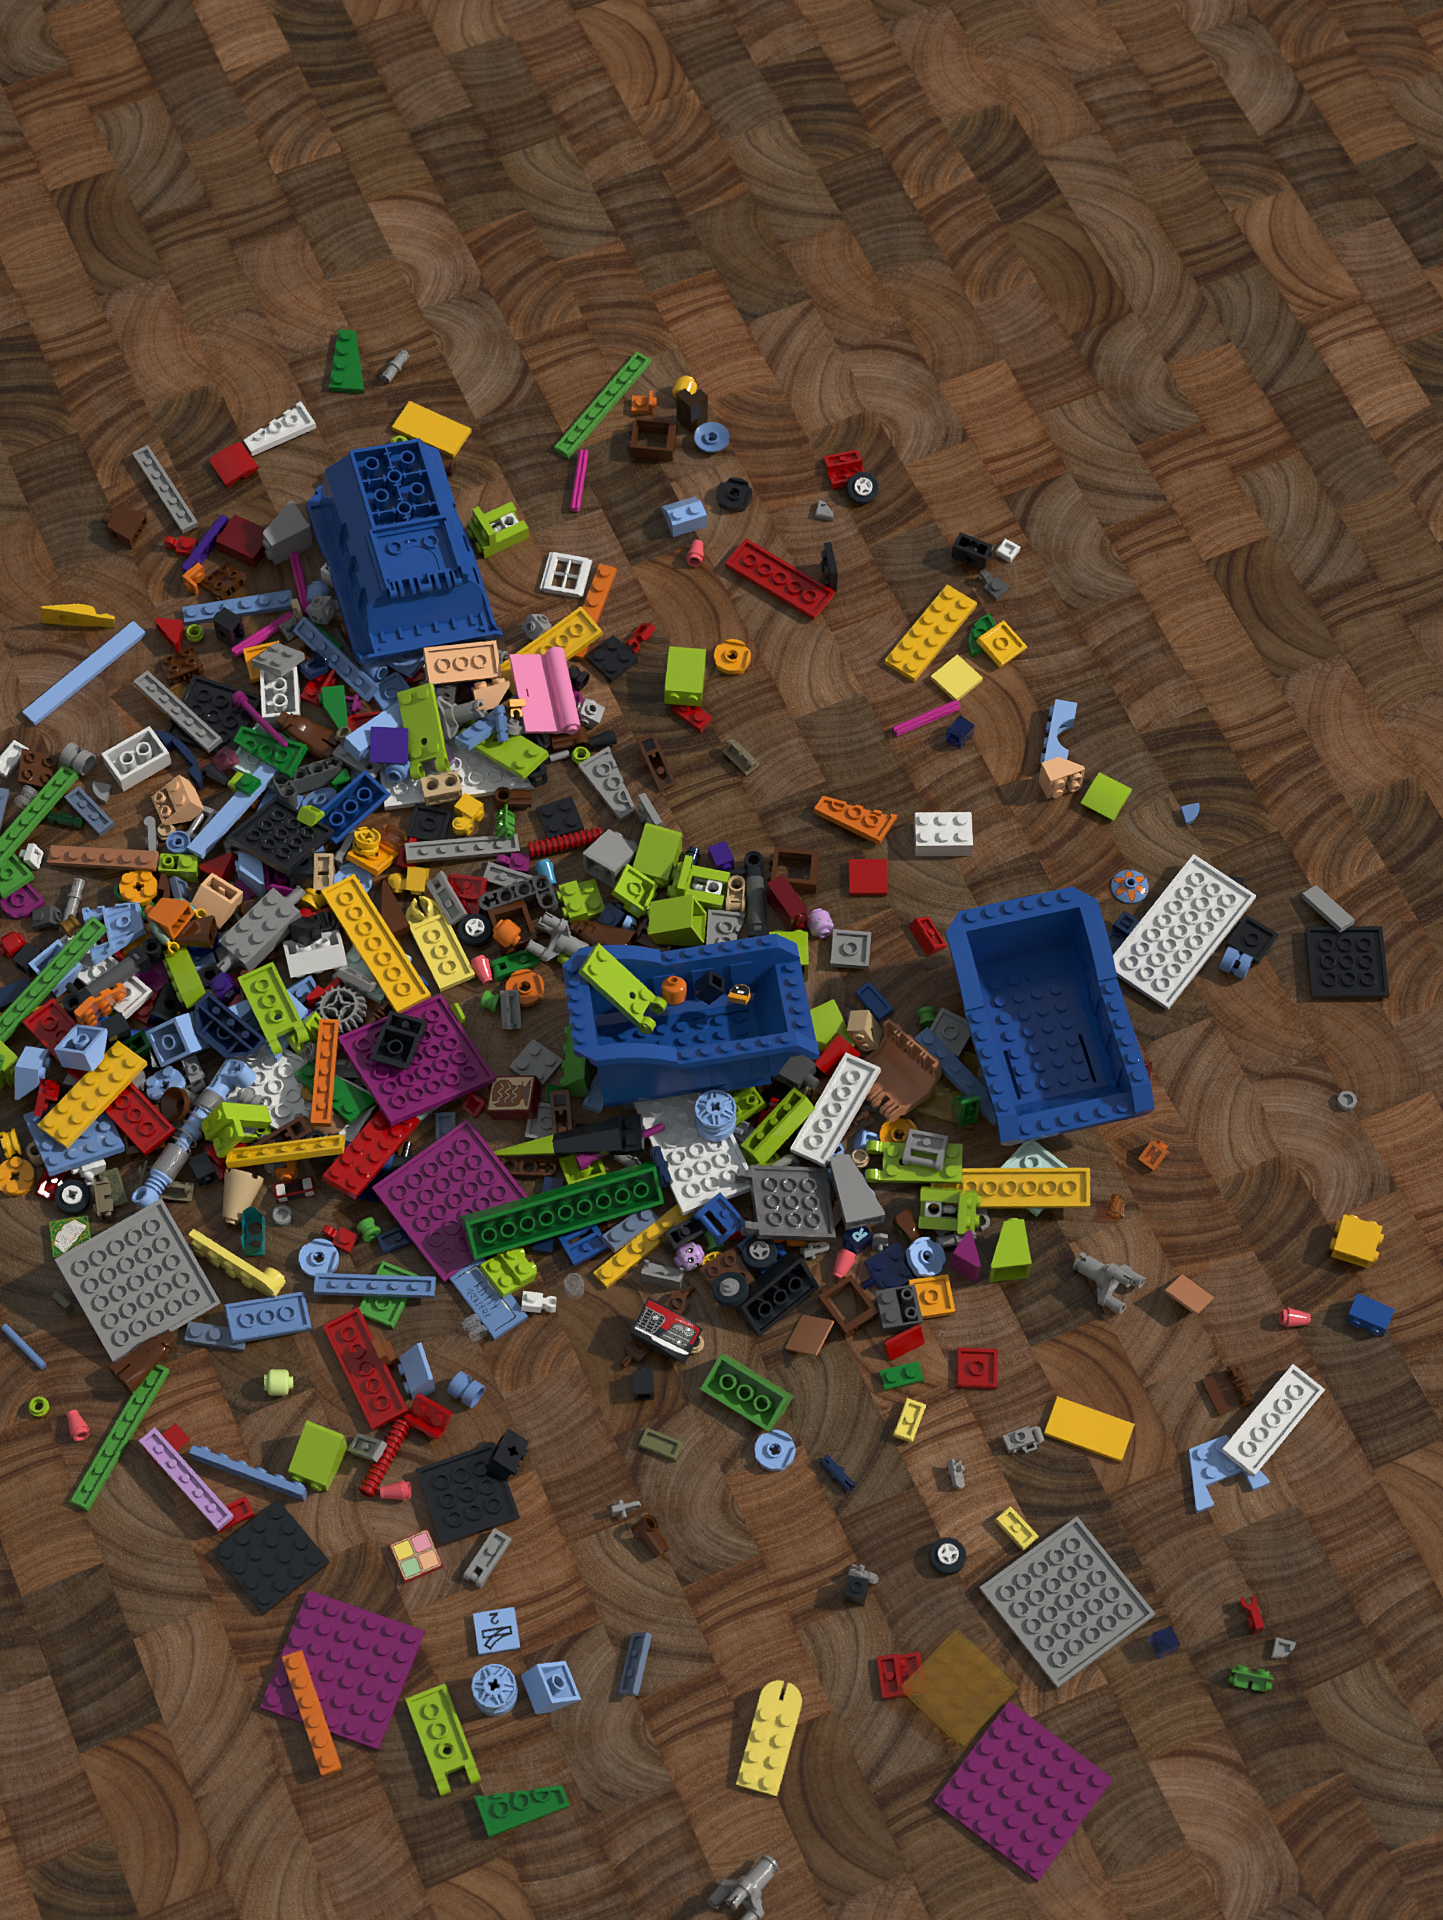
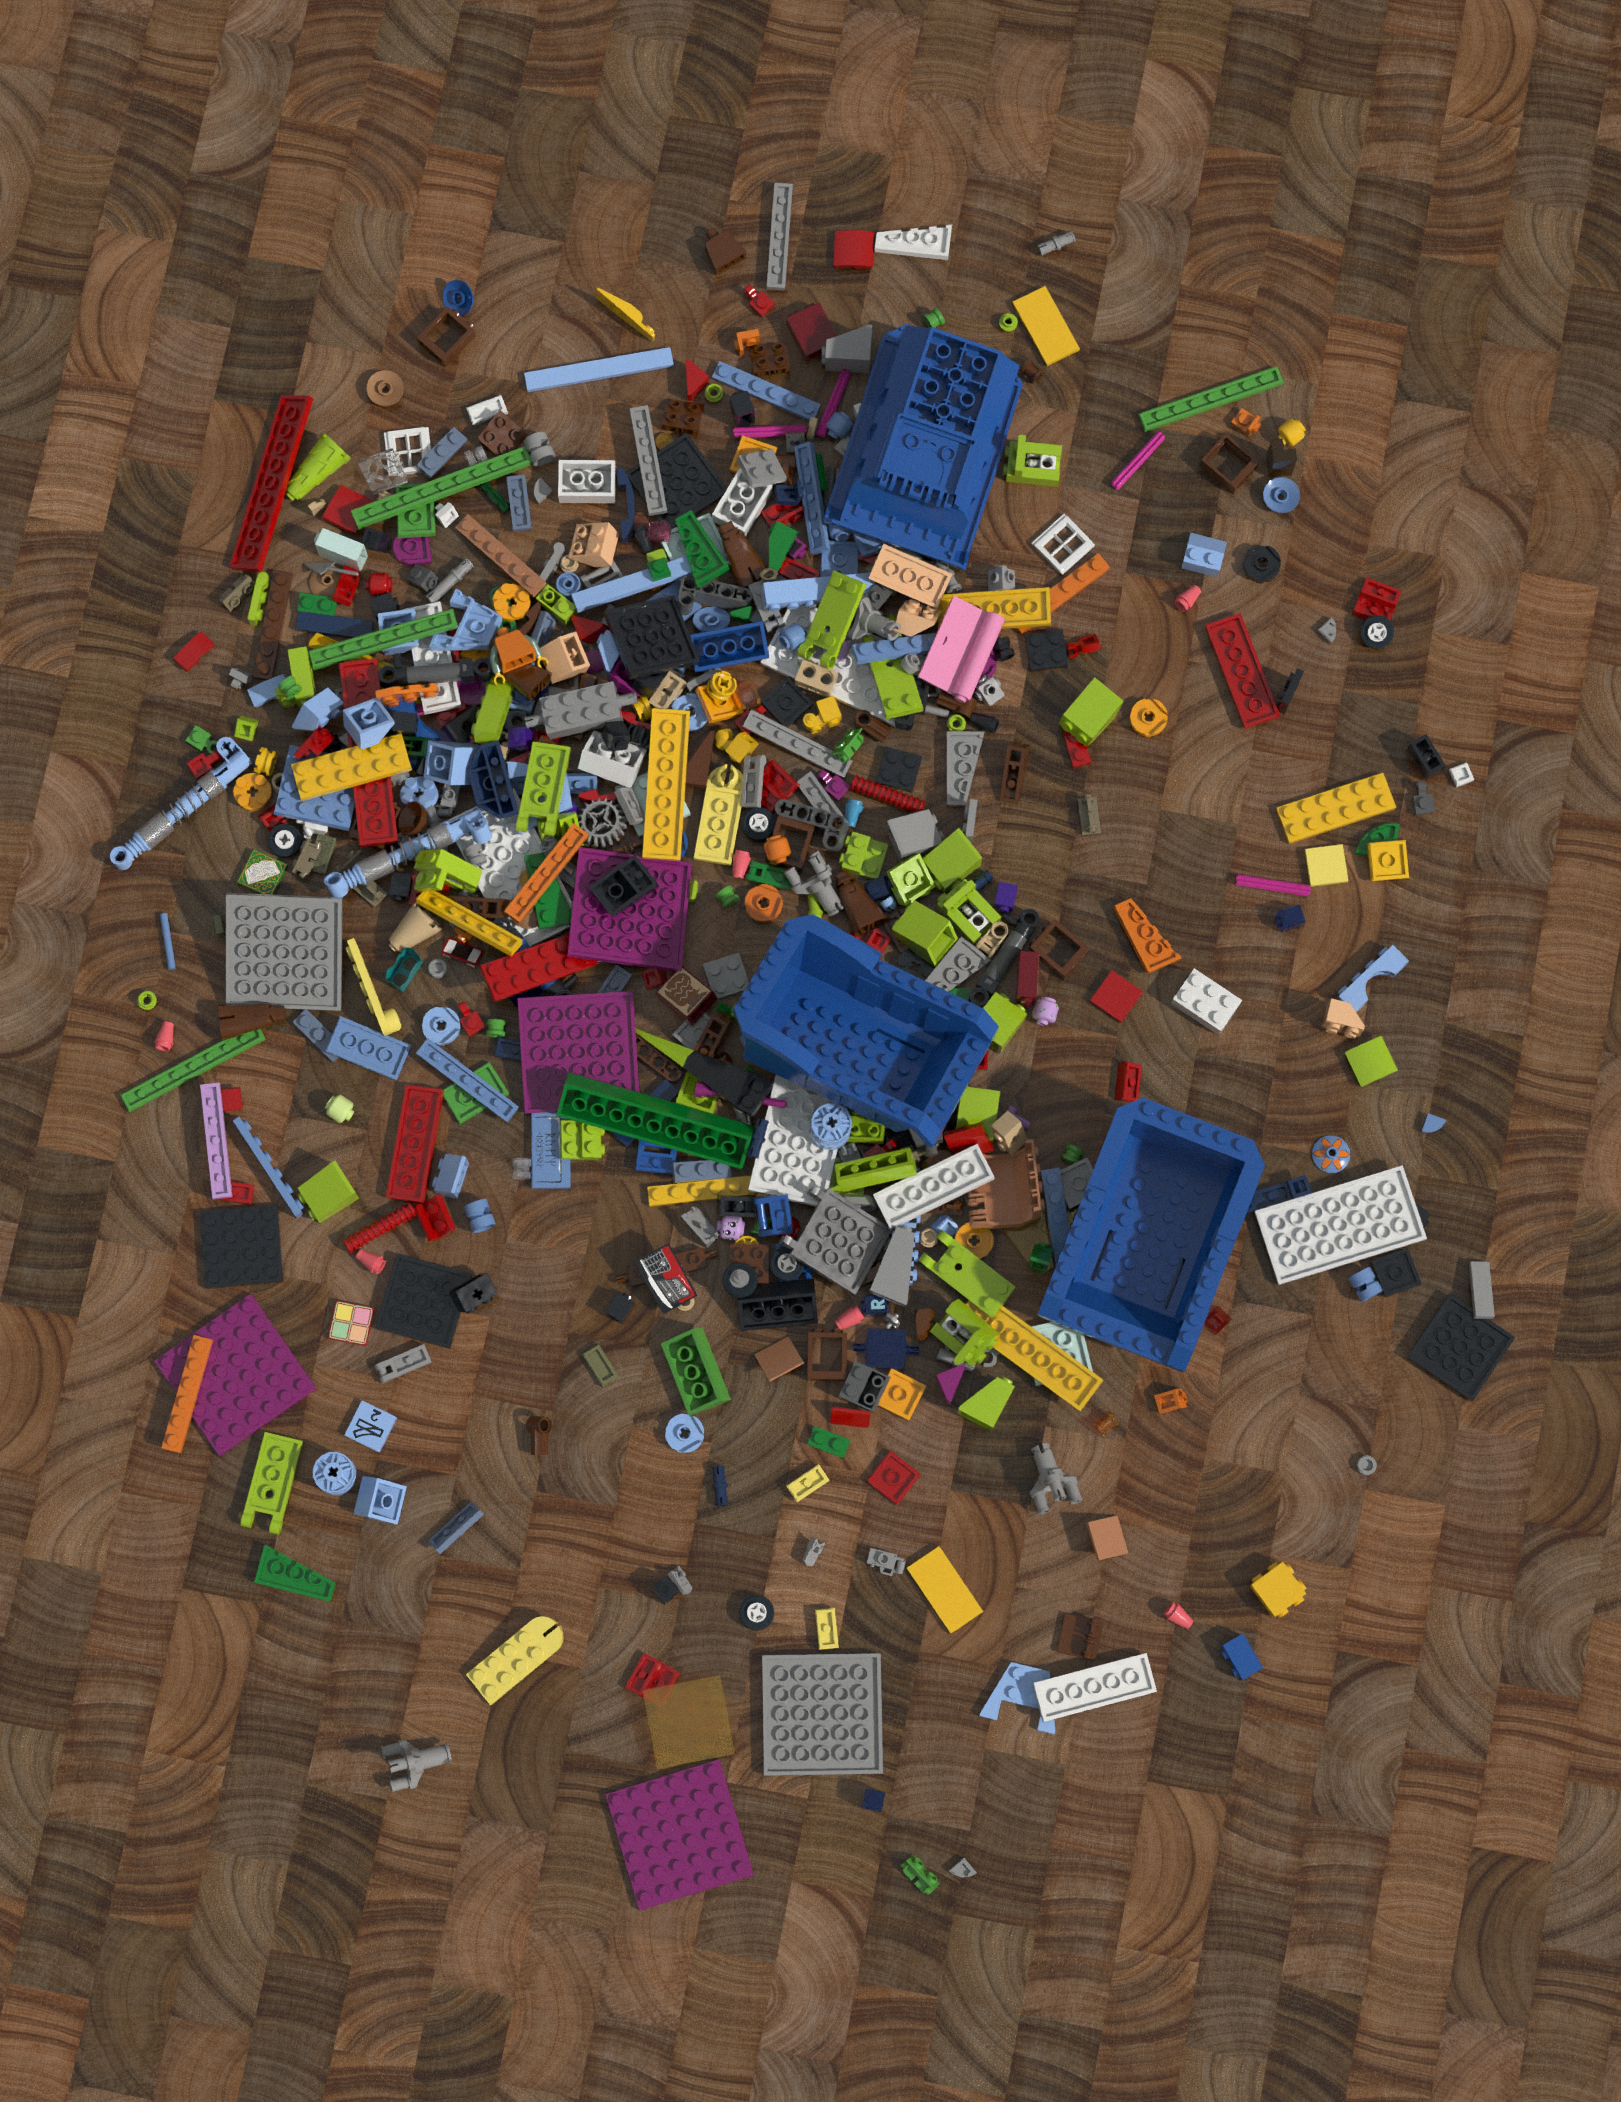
camera: 35 degrees right, 15 degrees up
(70, 925) = (434, 601): pearl gold wheel -> none
(207, 544) = (779, 314): dark purple plate -> none
(240, 700) = (706, 484): magenta piece -> none
(310, 815) = (689, 633): lime slope -> none
(321, 609) = (829, 444): light grey brick -> none
(346, 366) = (1015, 214): green wing -> none
(367, 1447) = (371, 1211): light grey plate -> none
(385, 1352) = (437, 1142): dark orange slope -> none
(389, 745) = (795, 613): dark purple piece -> none
(501, 723) = (901, 656): medium blue axle -> none
(510, 1009) = (737, 915): light grey hinge -> none
(515, 706) = (921, 647): pearl gold tile -> none
(535, 1302) = (583, 1179): white plate -> none
(572, 1289) = (623, 1188): clear wheel -> none
(617, 984) = (819, 964): lime hinge -> none
(621, 1509) = (533, 1397): light grey piece -> none
(674, 990) = (867, 1000): orange head -> none
(709, 987) = (896, 1018): black brick -> none
(739, 994) = (918, 1040): tile -> none
(810, 1250) = (832, 1289): light grey piece -> none
(850, 949) = (1054, 1051): light grey plate -> none
(874, 1001) = (1040, 1110): blue tile -> none
(918, 1264) = (913, 1349): light blue plate -> none
(925, 1143) = (985, 1267): light grey plate -> none
(1254, 1618) = (956, 1832): red plate -> none

